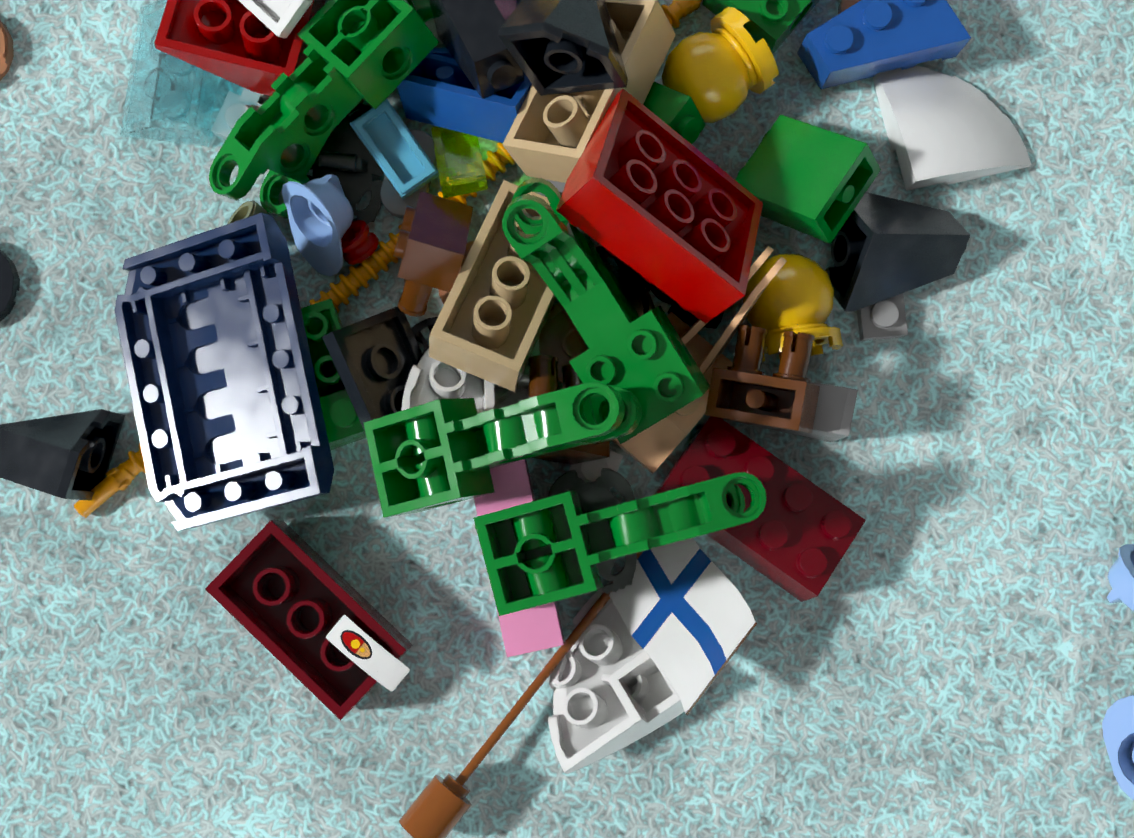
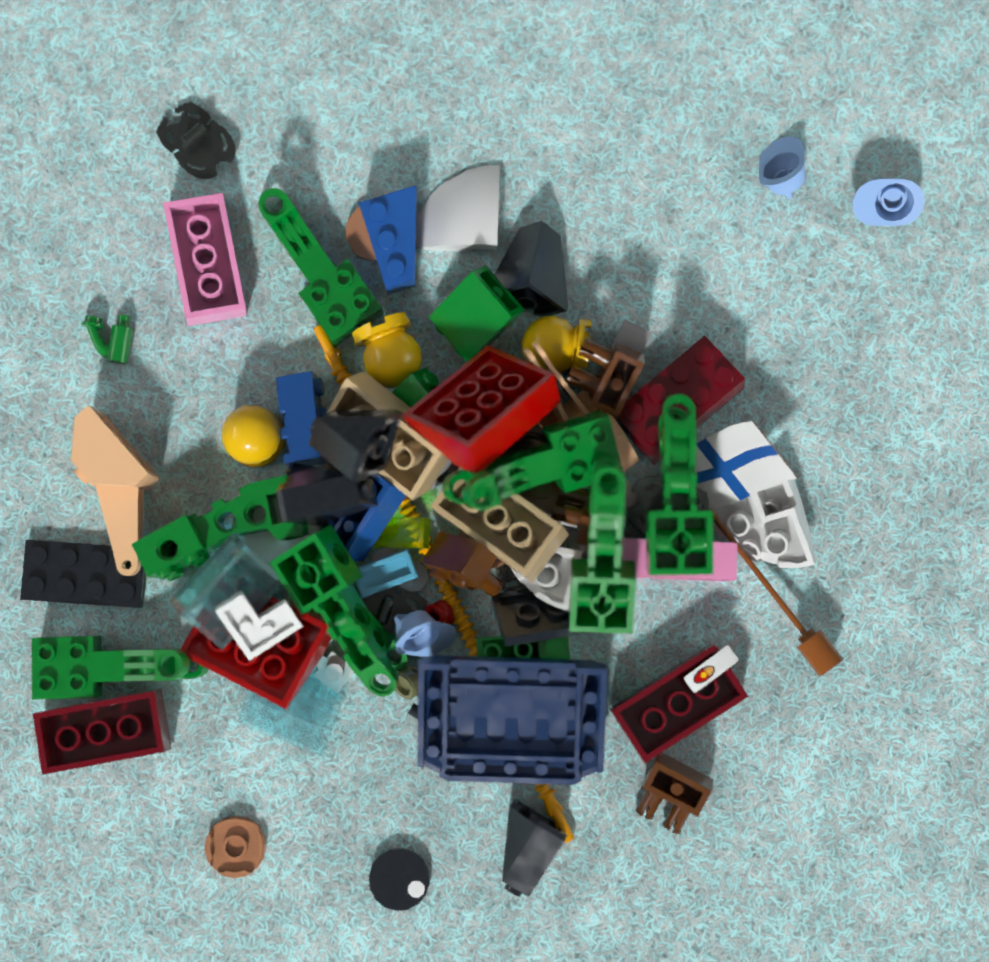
camera: 75 degrees left, 0 degrees up
(188, 649) = (678, 785): none -> reddish brown brick
(883, 319) = (577, 287): light grey plate -> none

